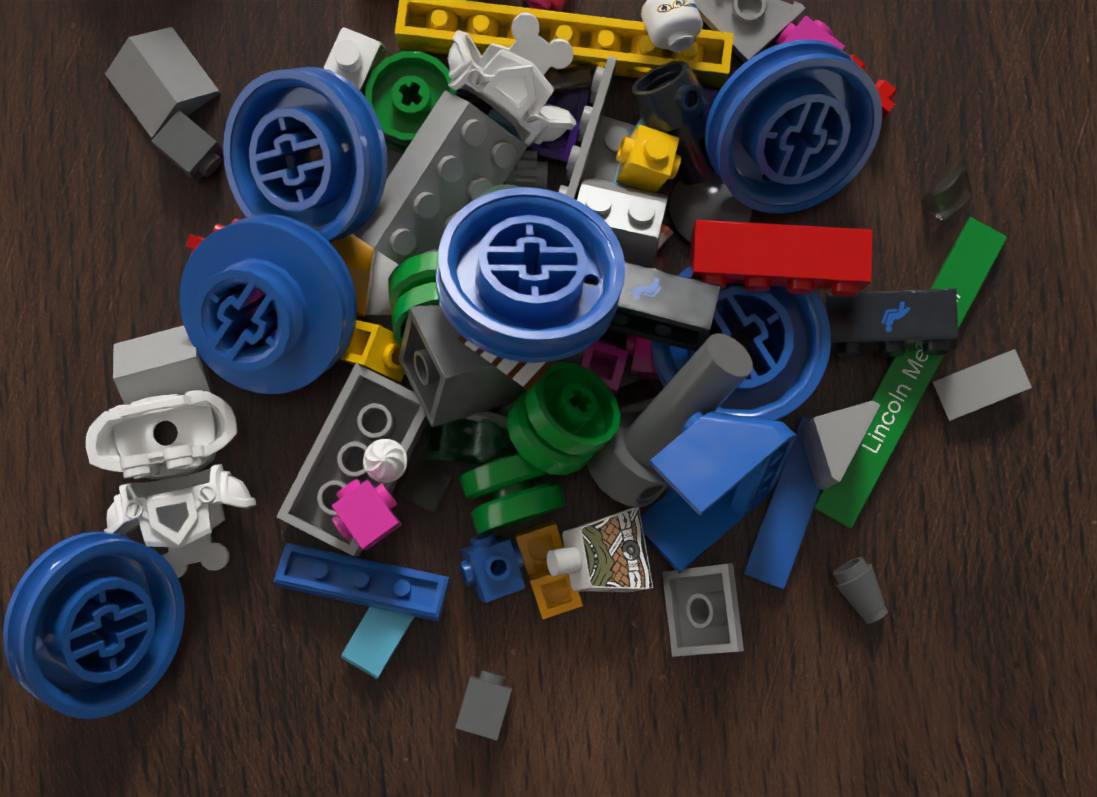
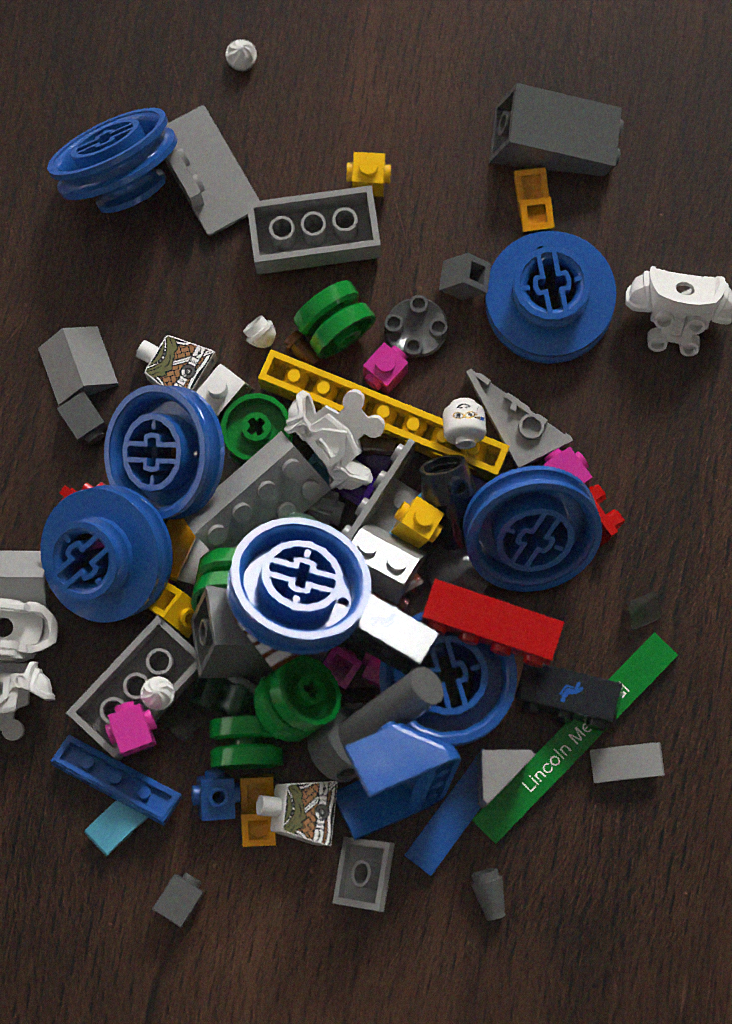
camera: 20 degrees right, 5 degrees down
(285, 41) = (177, 362): none -> torso

